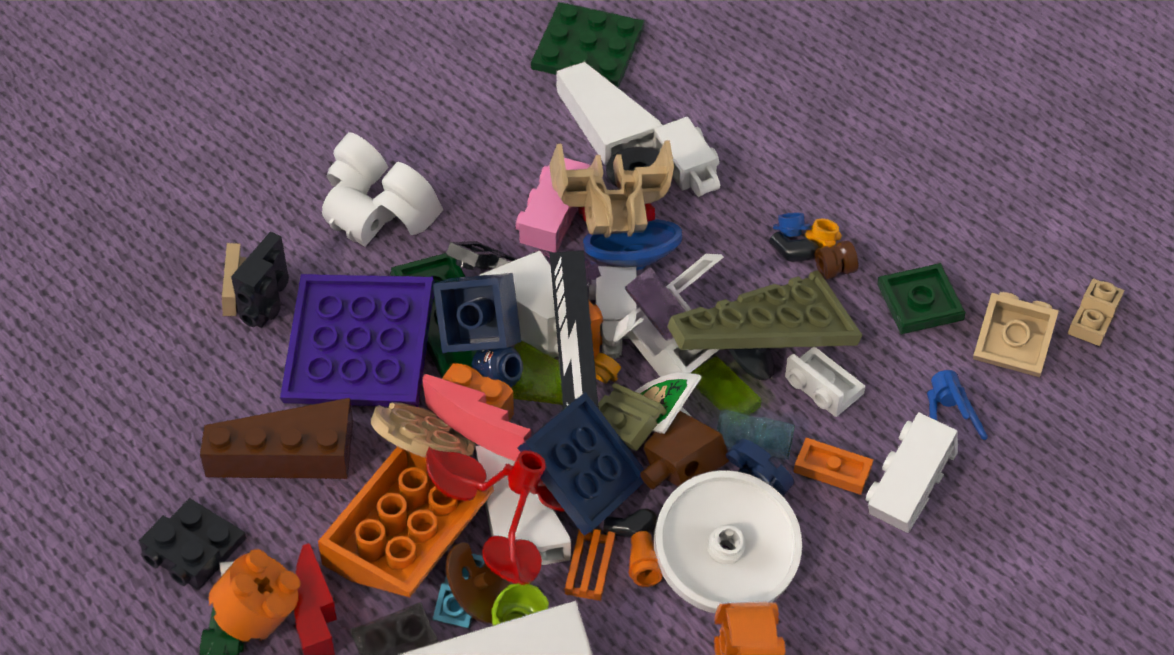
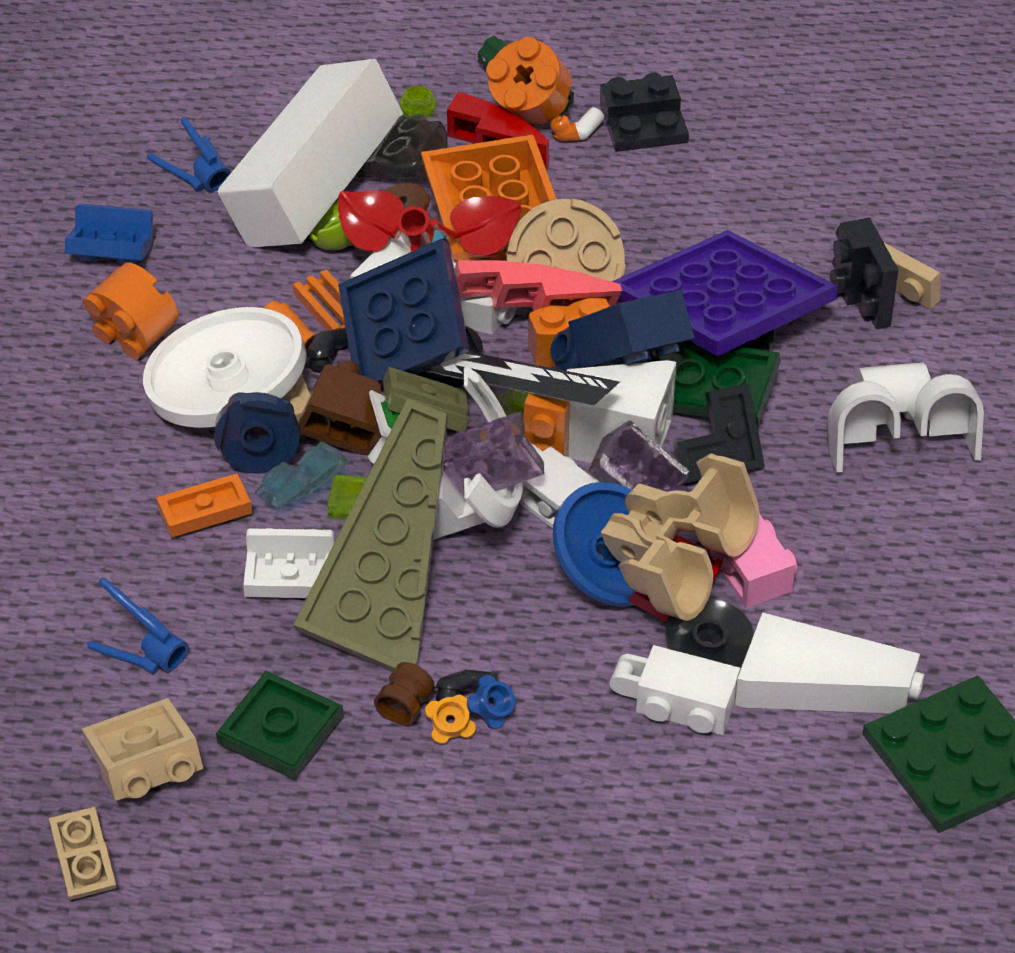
camera: 135 degrees right, 5 degrees down
(282, 444) = (671, 197): reddish brown wedge -> none
(912, 471) = (120, 537): white wedge -> none

